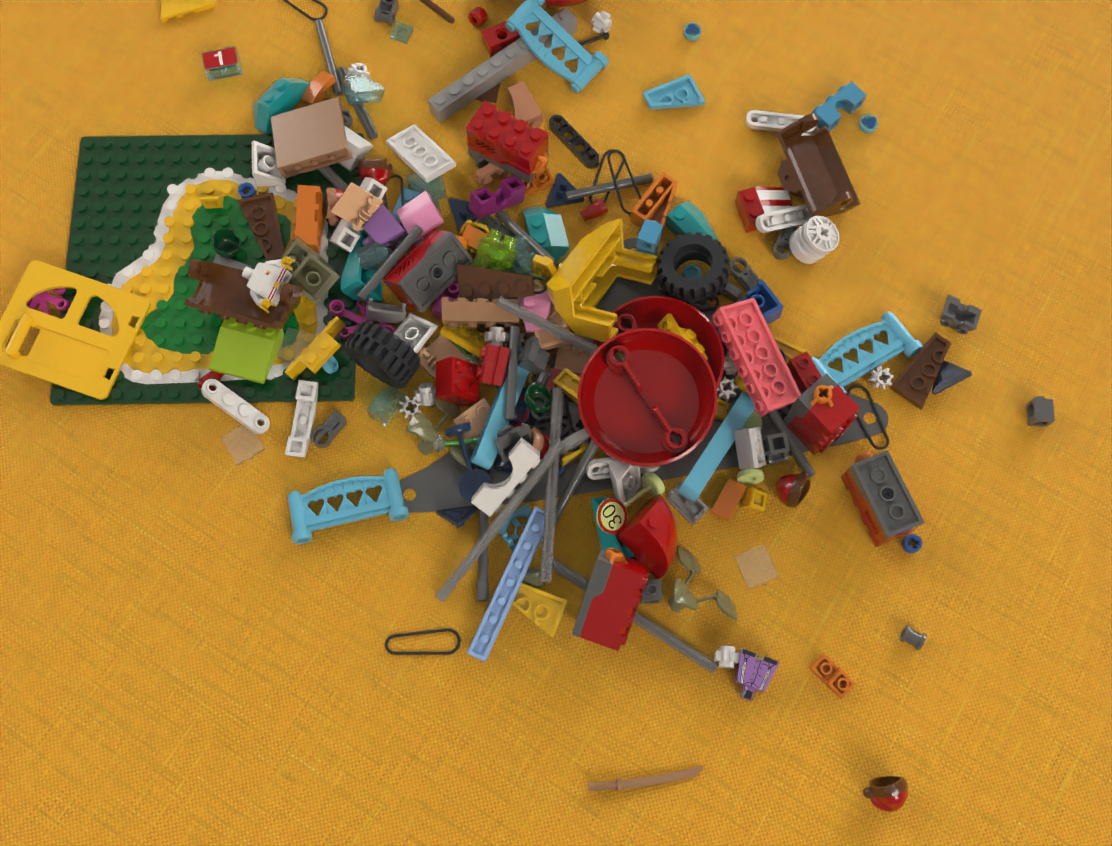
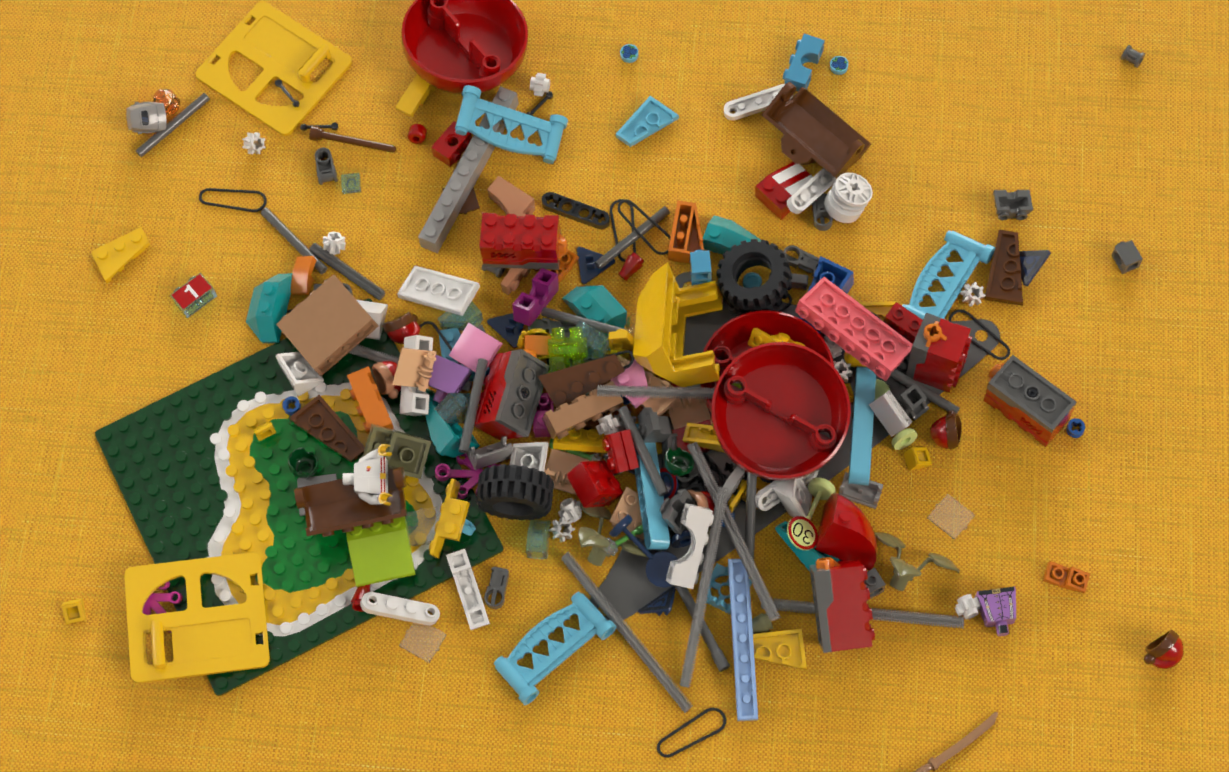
camera: 20 degrees left, 5 degrees down
(361, 89) = (347, 257): clear light blue slope -> none
(415, 526) = (624, 630): none -> light grey axle
(728, 499) = (895, 469): orange slope -> none
(912, 637) = (1118, 508): dark grey bush -> none

